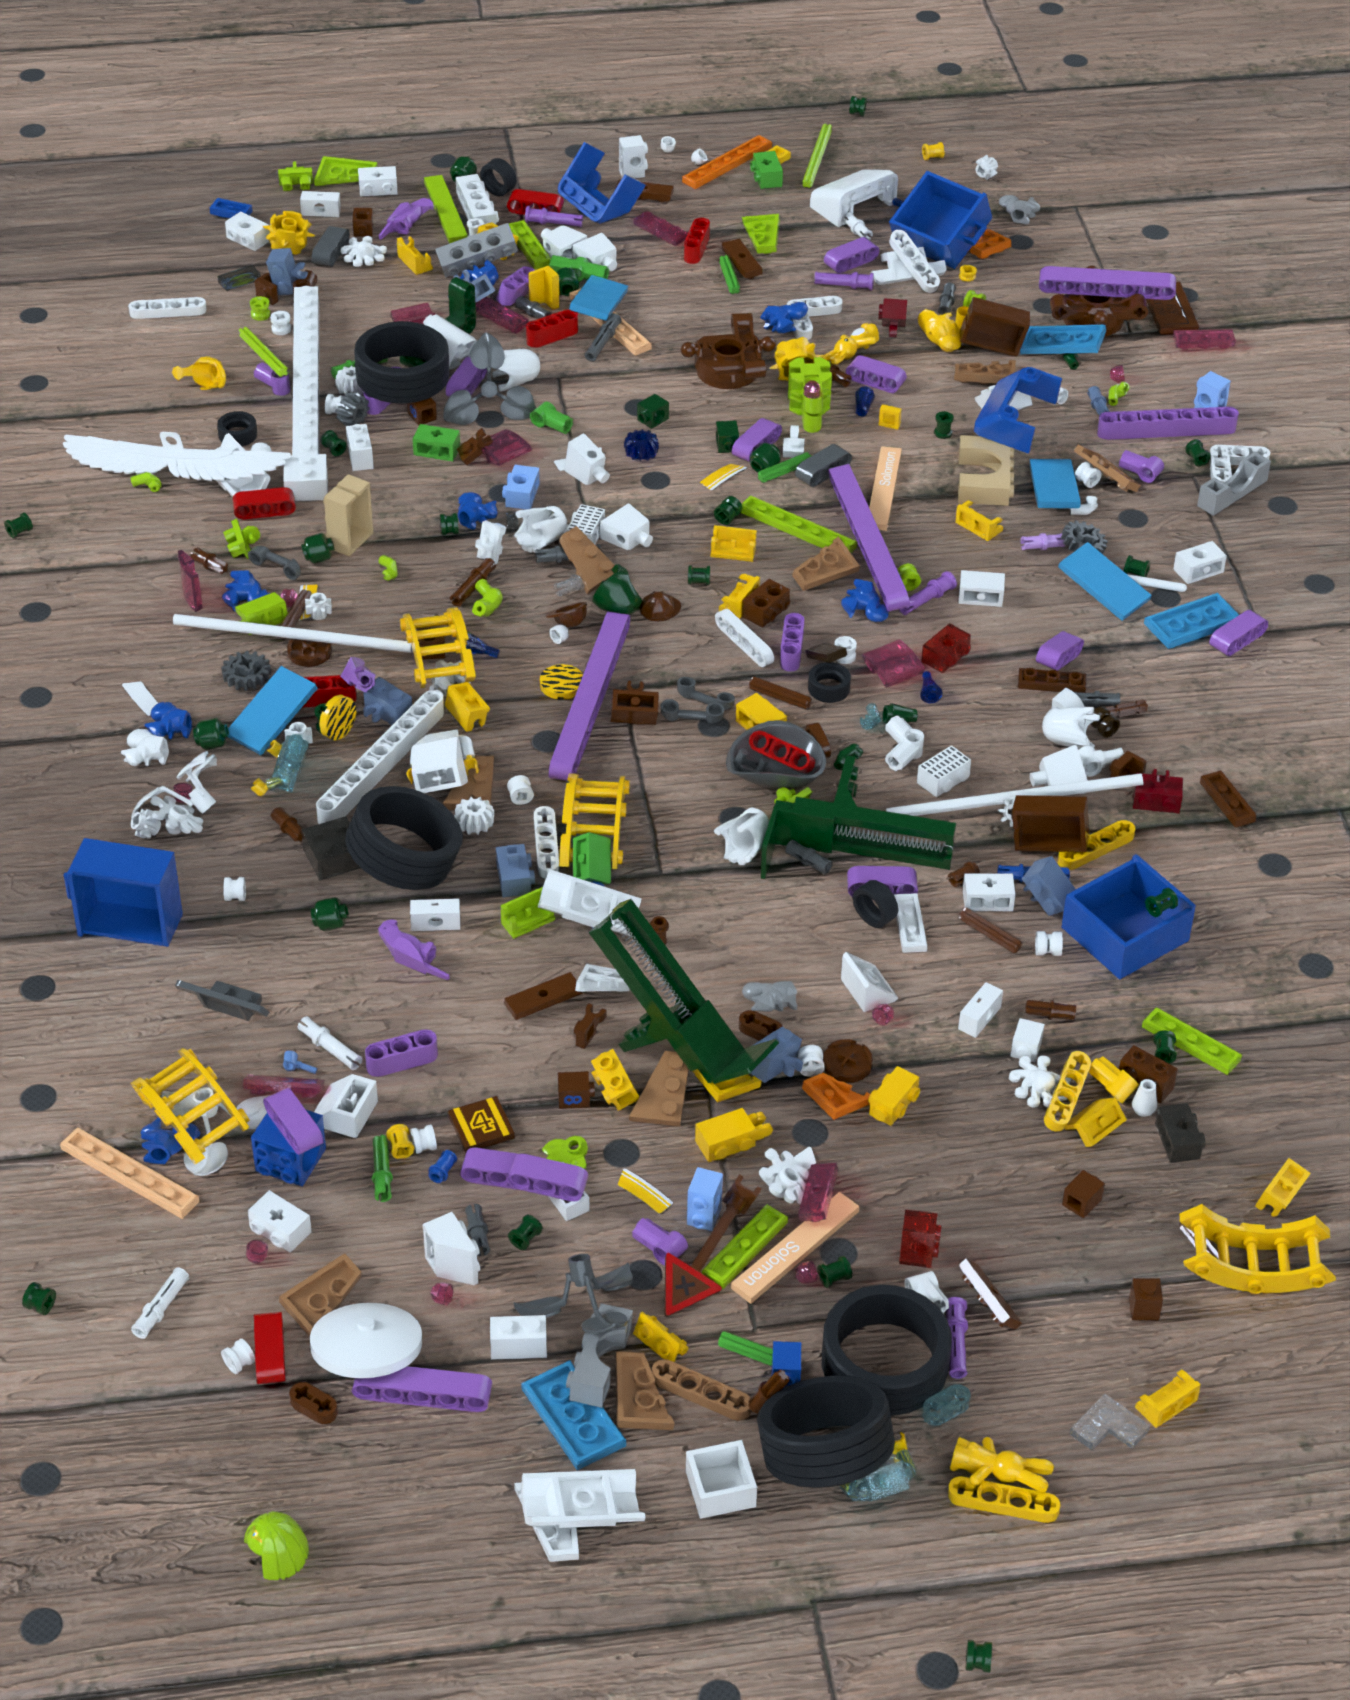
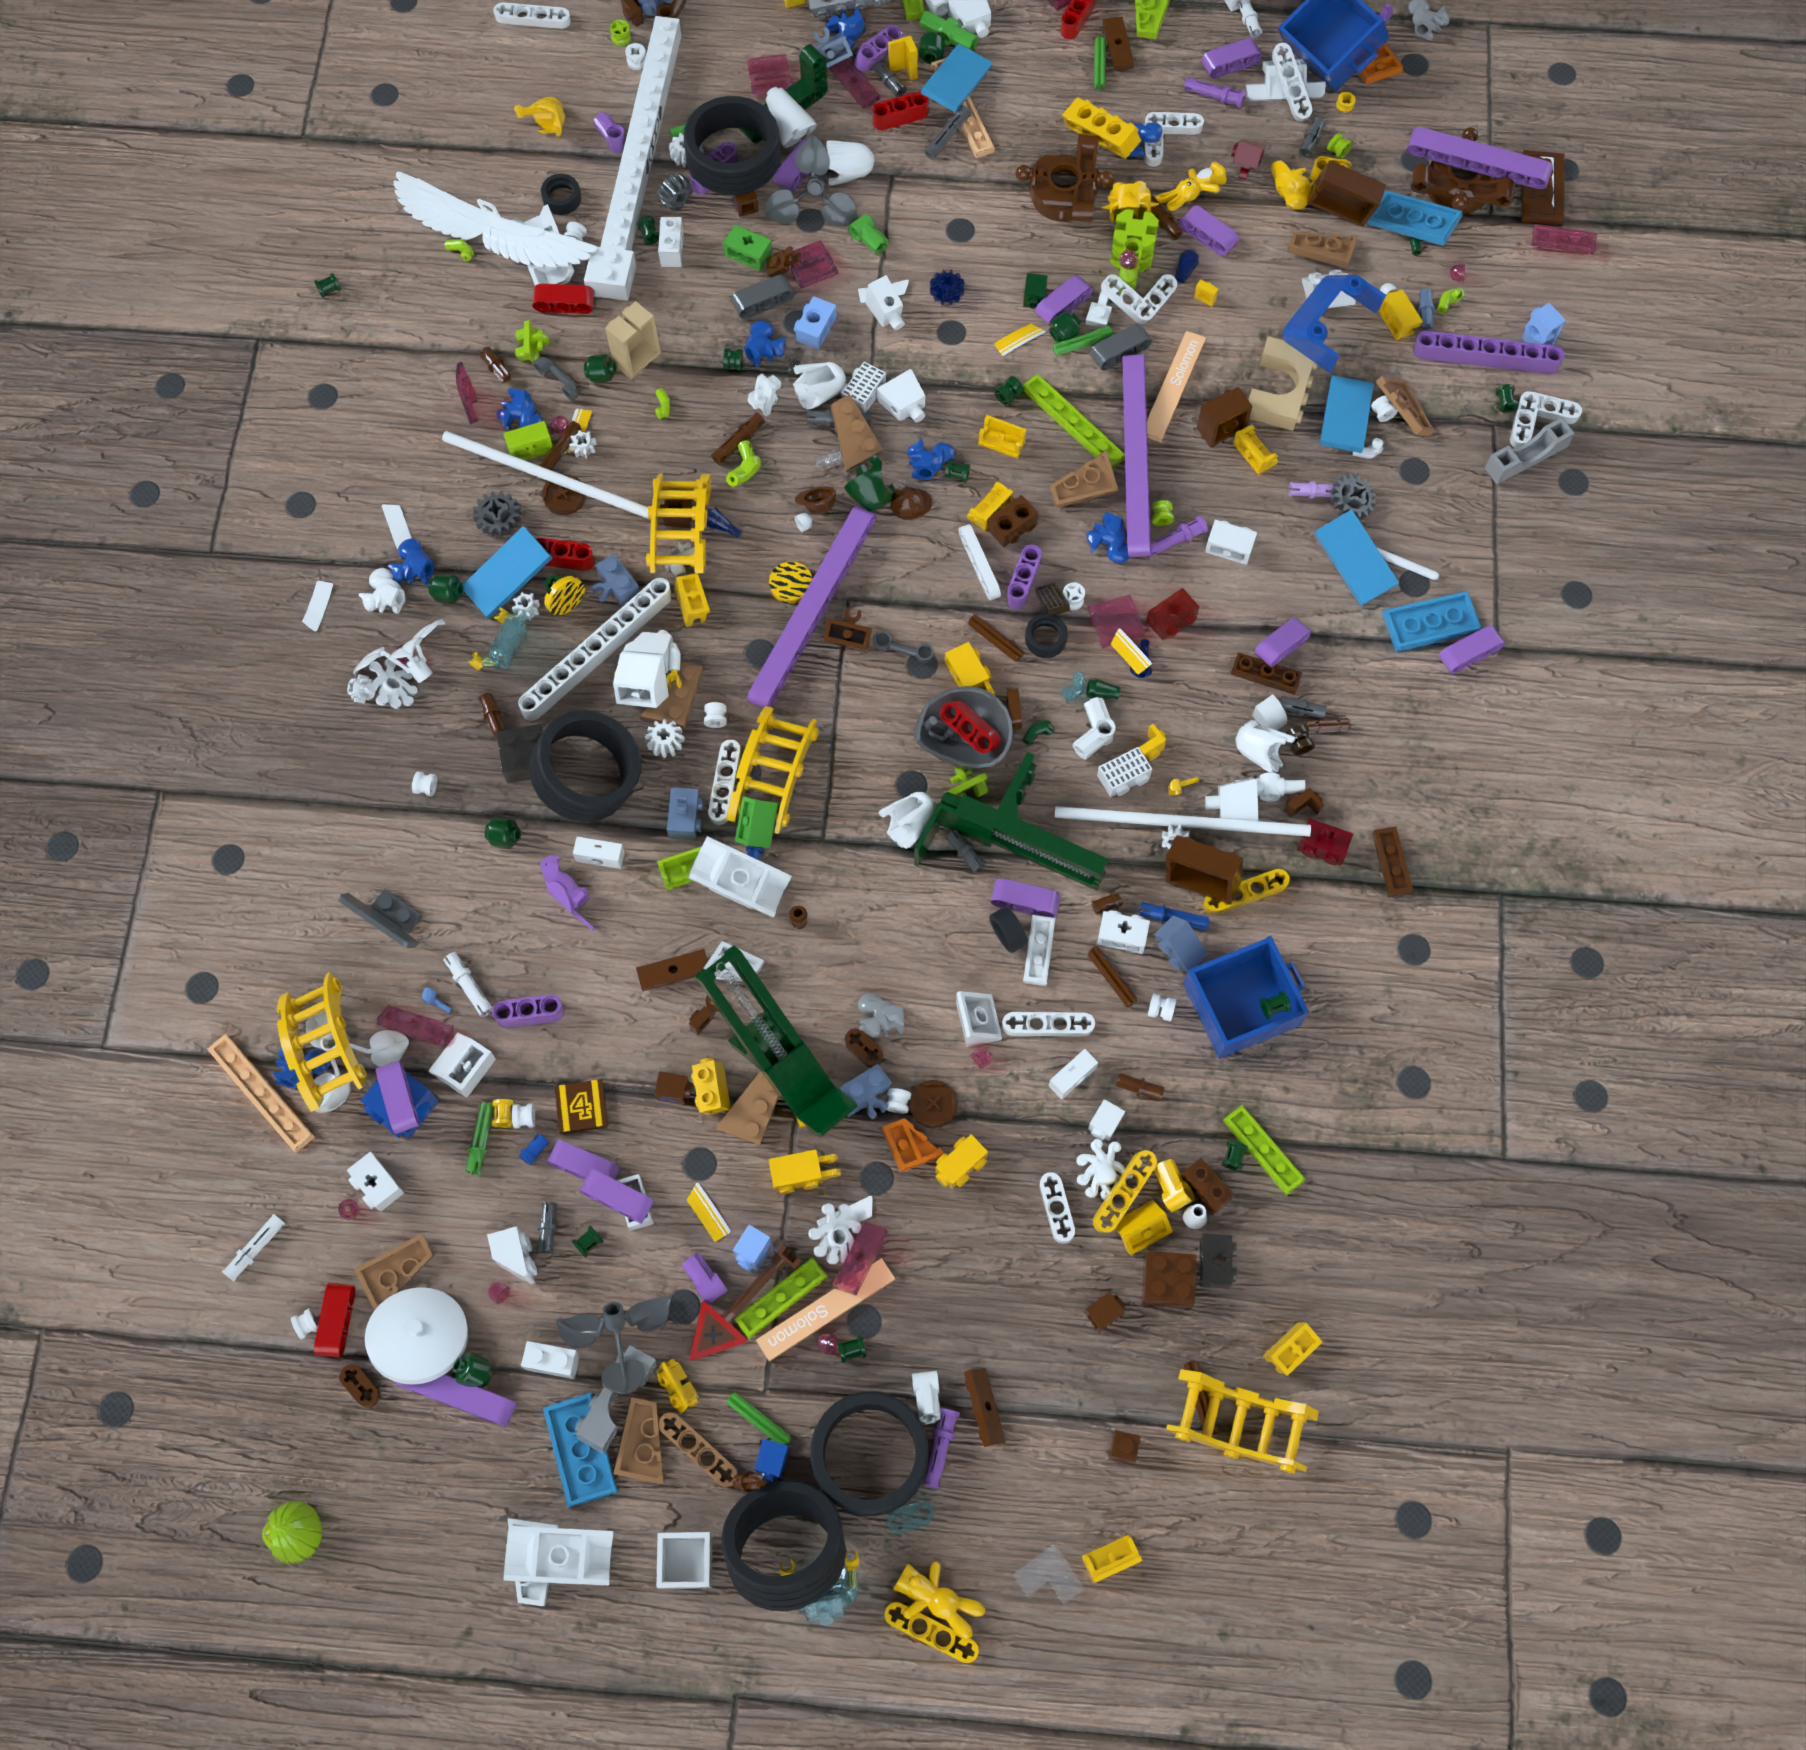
camera: 15 degrees right, 25 degrees up
(39, 1298) = (151, 1221): dark green wheel -> none
(77, 770) = (317, 605): none -> white sticker
(124, 892) = (314, 783): blue container -> none
(263, 351) = (607, 99): lime axle -> none
(331, 404) = (658, 176): white wheel -> none
(358, 674) = (591, 551): medium lavender animal -> none
(436, 1357) = (472, 1370): none -> dark green head
(462, 475) = (762, 296): none -> dark grey beam
(560, 1151) = (643, 1162): lime plate -> none
(653, 411) = (970, 243): dark green brick -> none
(666, 572) = (927, 461): none -> blue animal
(686, 688) = (906, 616): dark grey bar -> none
(766, 312) = (1112, 130): none -> yellow brick
(801, 419) = (1138, 303): none -> white beam
(916, 678) = (1130, 652): none -> yellow sticker
(919, 1238) = (935, 1337): clear red brick -> none
(939, 974) = (1048, 1027): none -> white beam
(941, 496) = (1224, 416): none -> reddish brown brick
(943, 427) = (1258, 311): dark green bush -> none
(965, 742) = (1153, 747): none -> yellow bracket
(999, 776) = (1175, 786): none -> yellow hand
(1004, 1132) = (1055, 1227): none -> white beam
(1075, 408) = (1399, 315): none -> yellow hinge
(1136, 567) = (1395, 542): dark green bush -> none
(1138, 1154) = (1169, 1279): none -> reddish brown brick
(1145, 467) = (1447, 410): medium lavender piece -> none
(1199, 562) = (1452, 556): white brick -> none

